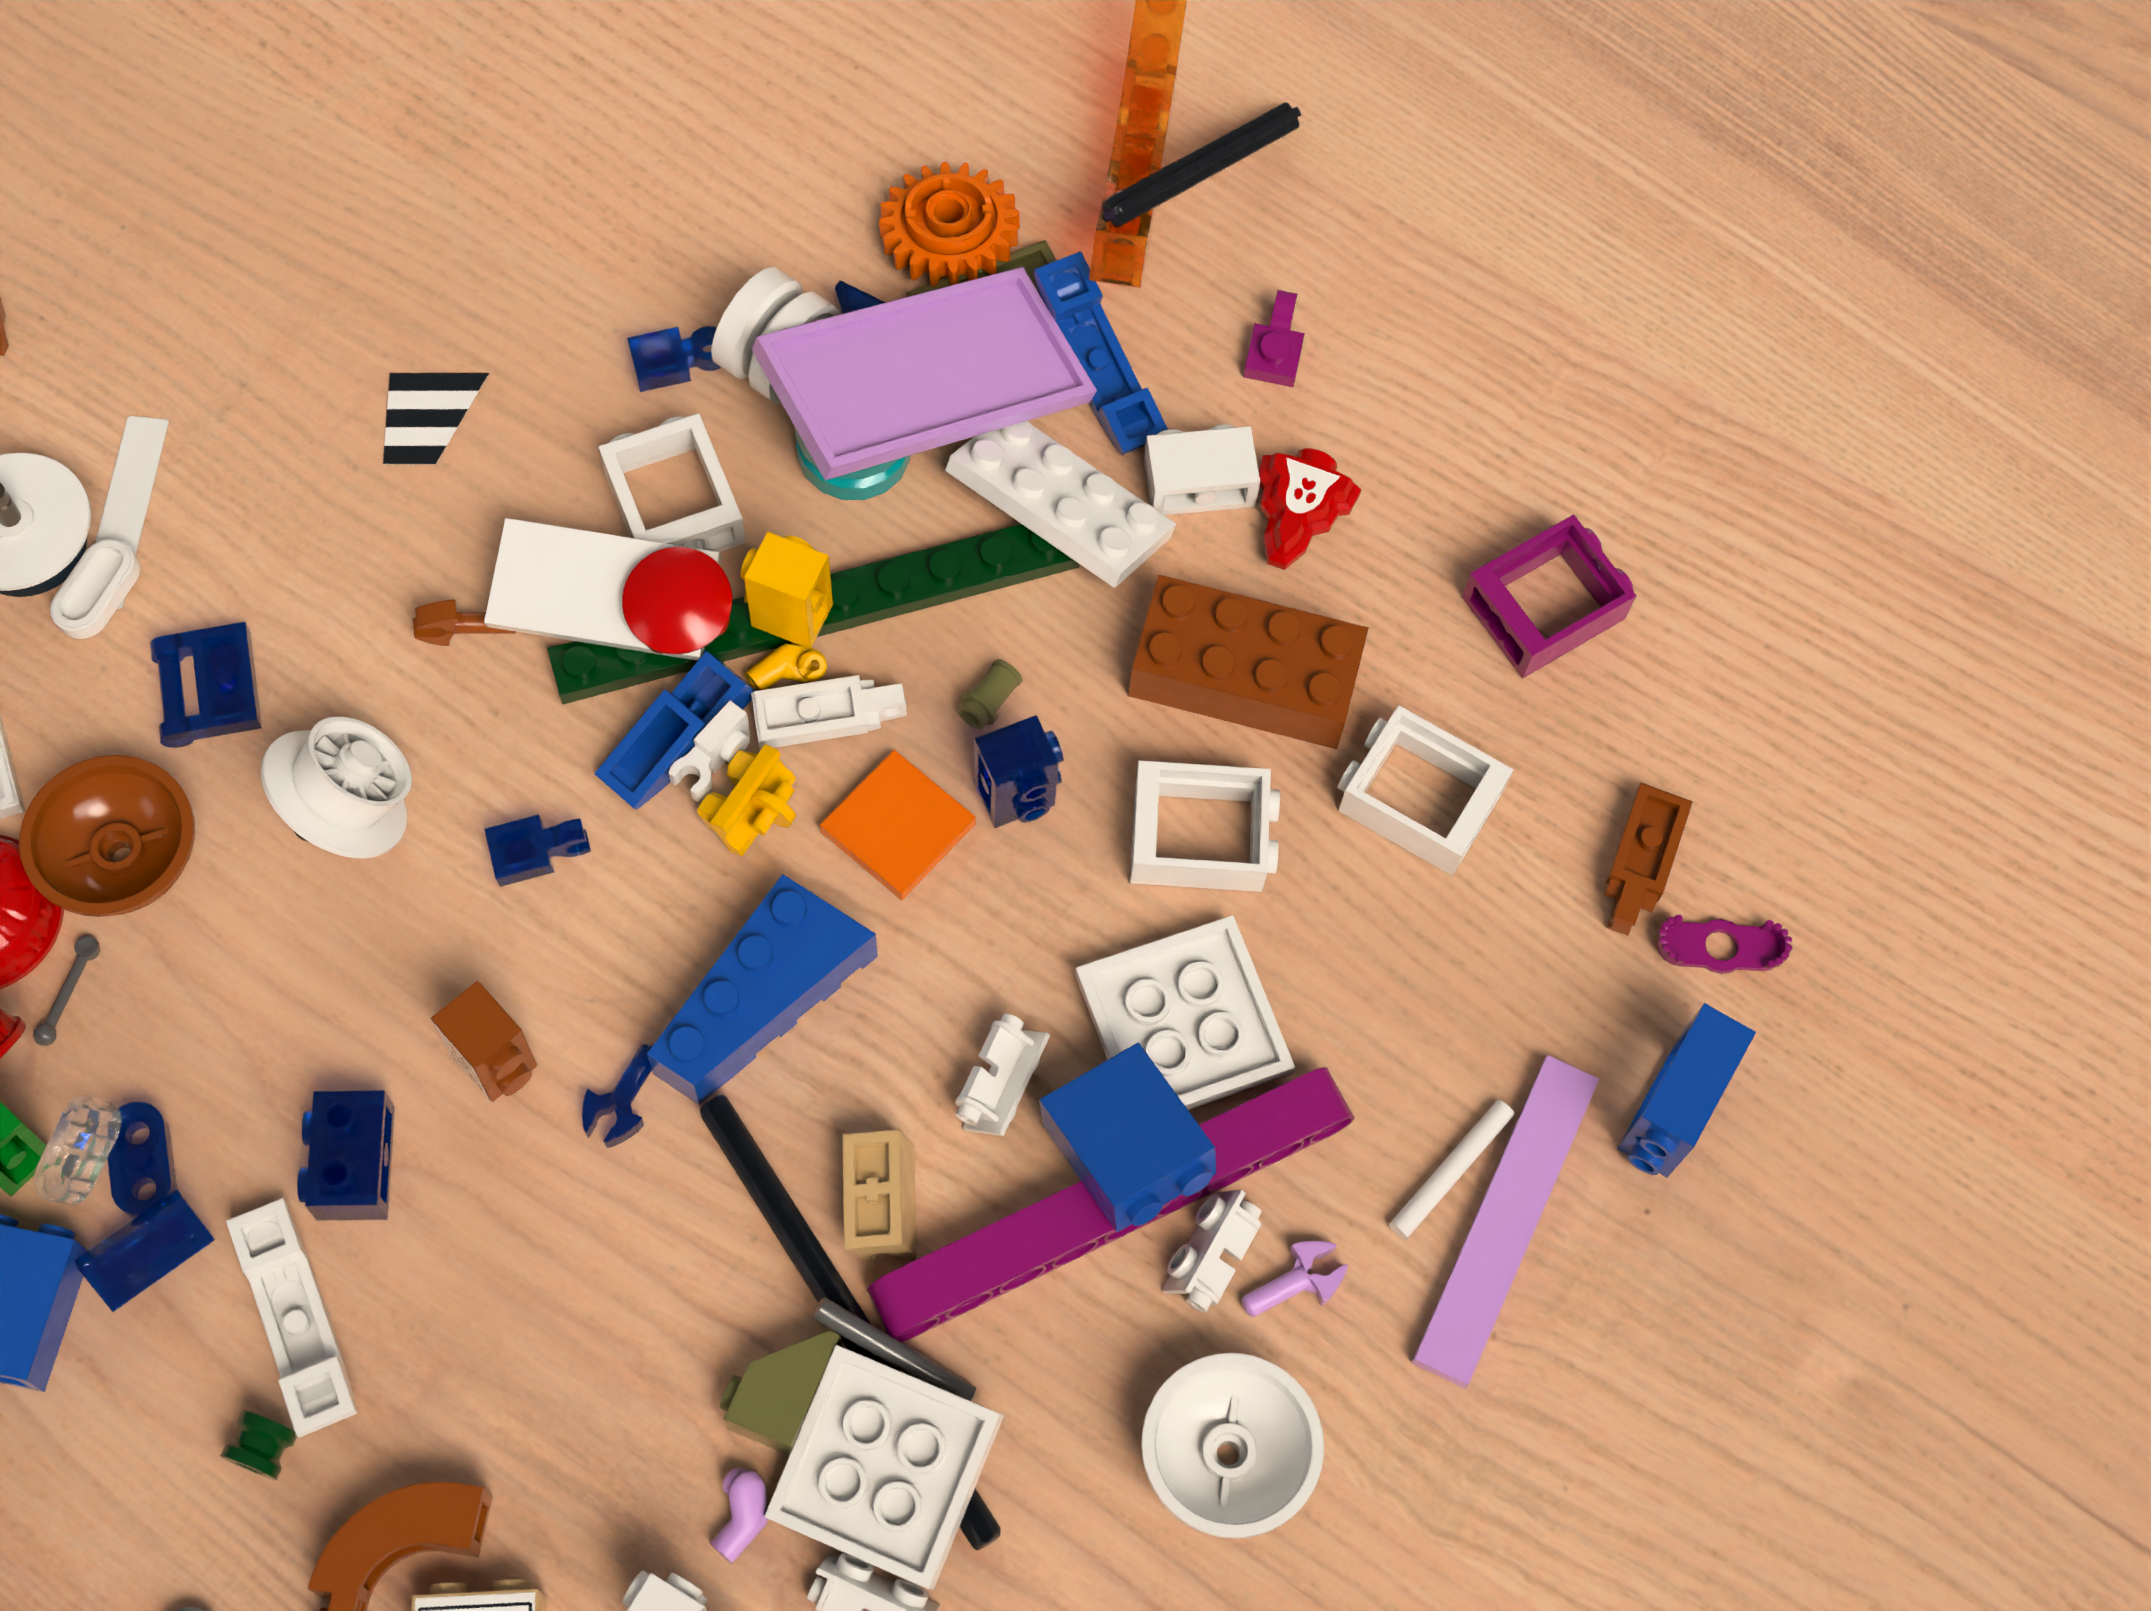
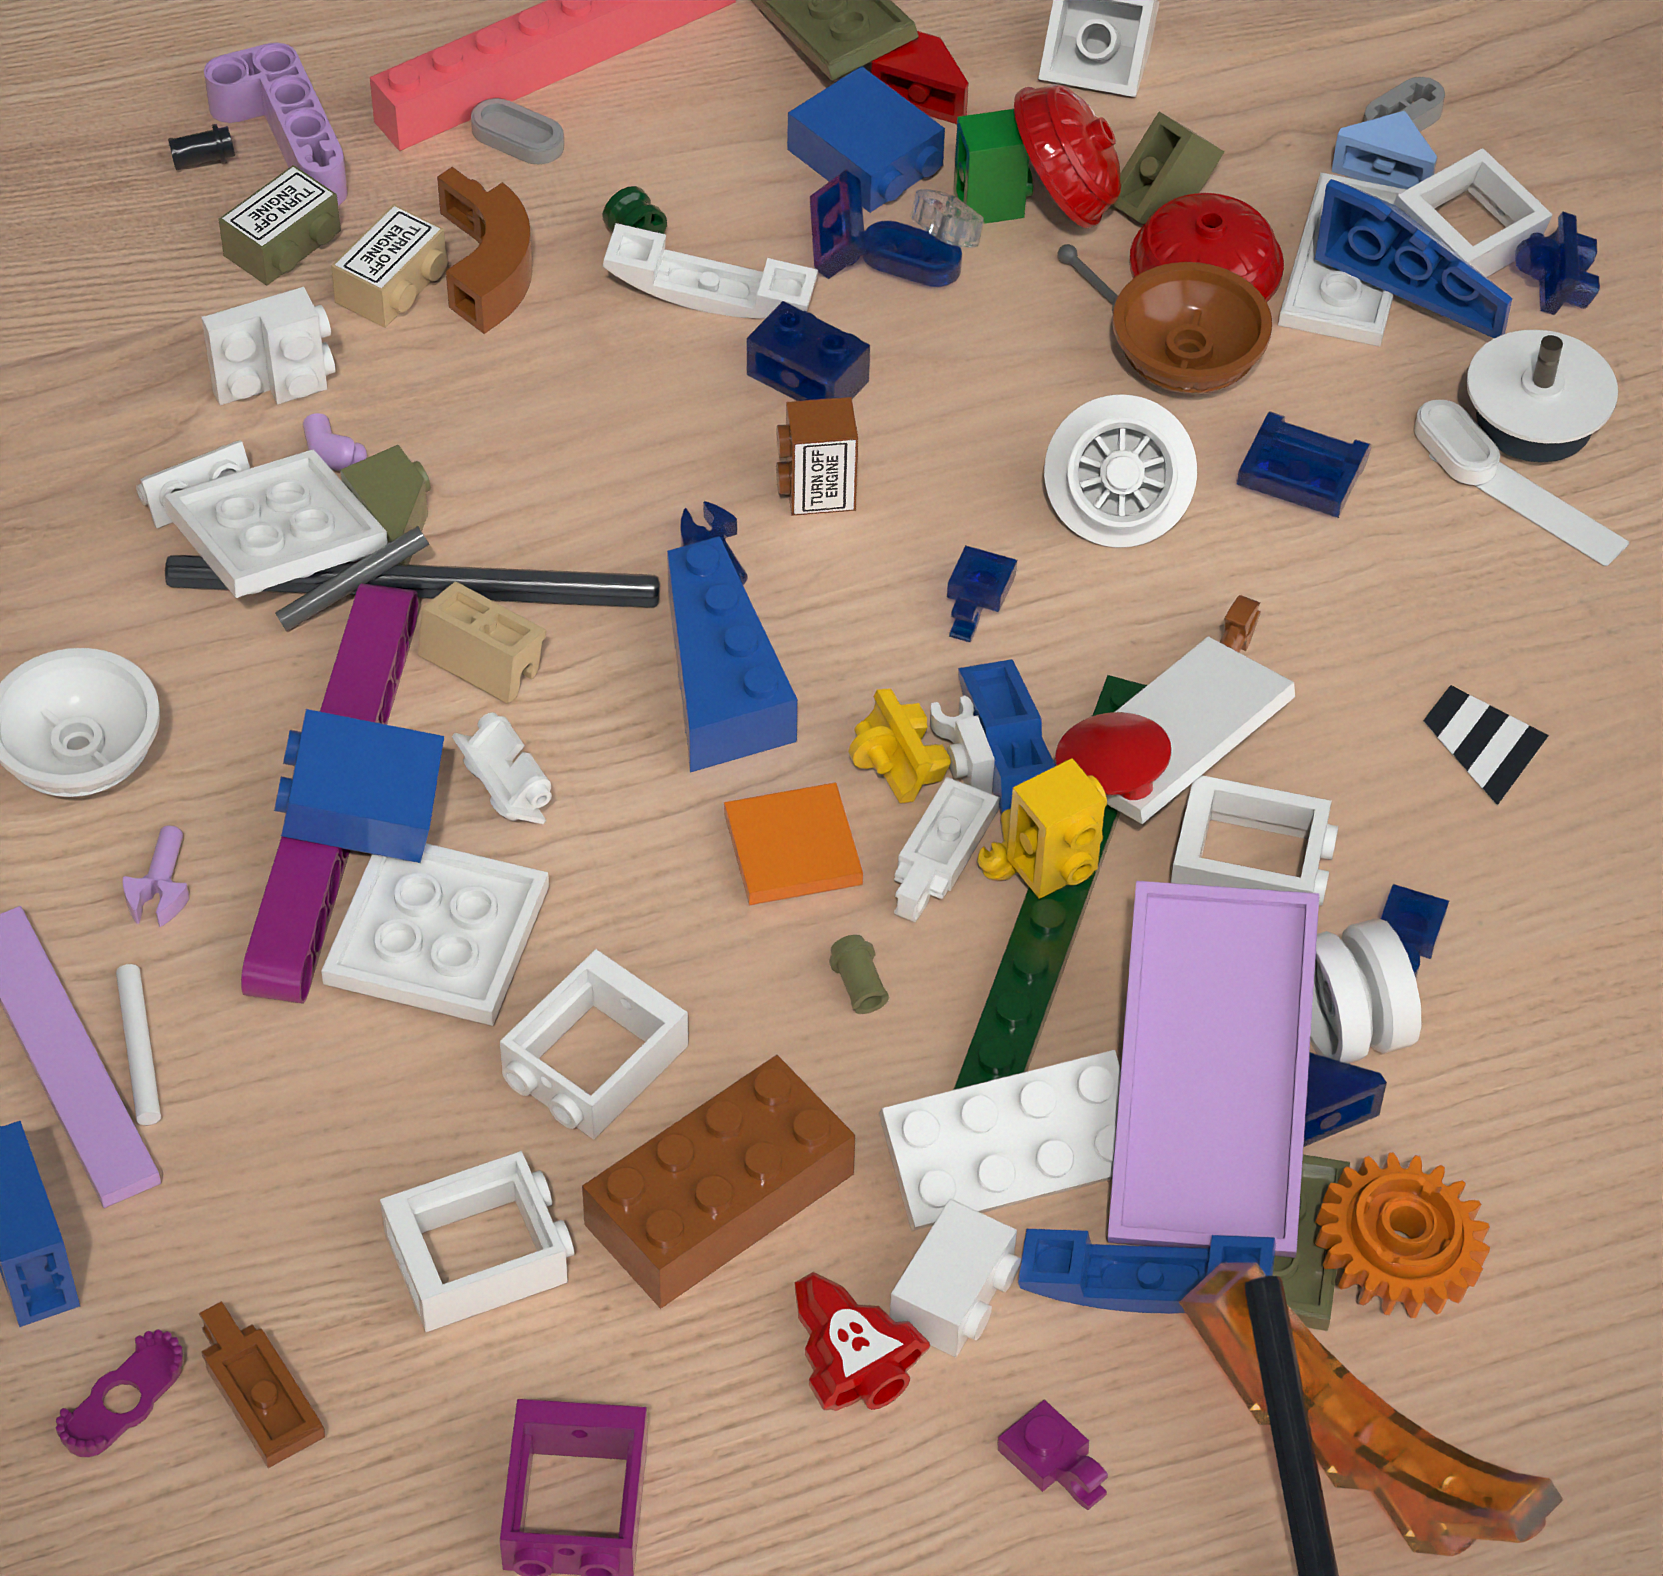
camera: 130 degrees right, 15 degrees down
(1017, 771) = (752, 917): clear blue brick -> none
(1225, 1226) = (229, 812): white hinge -> none

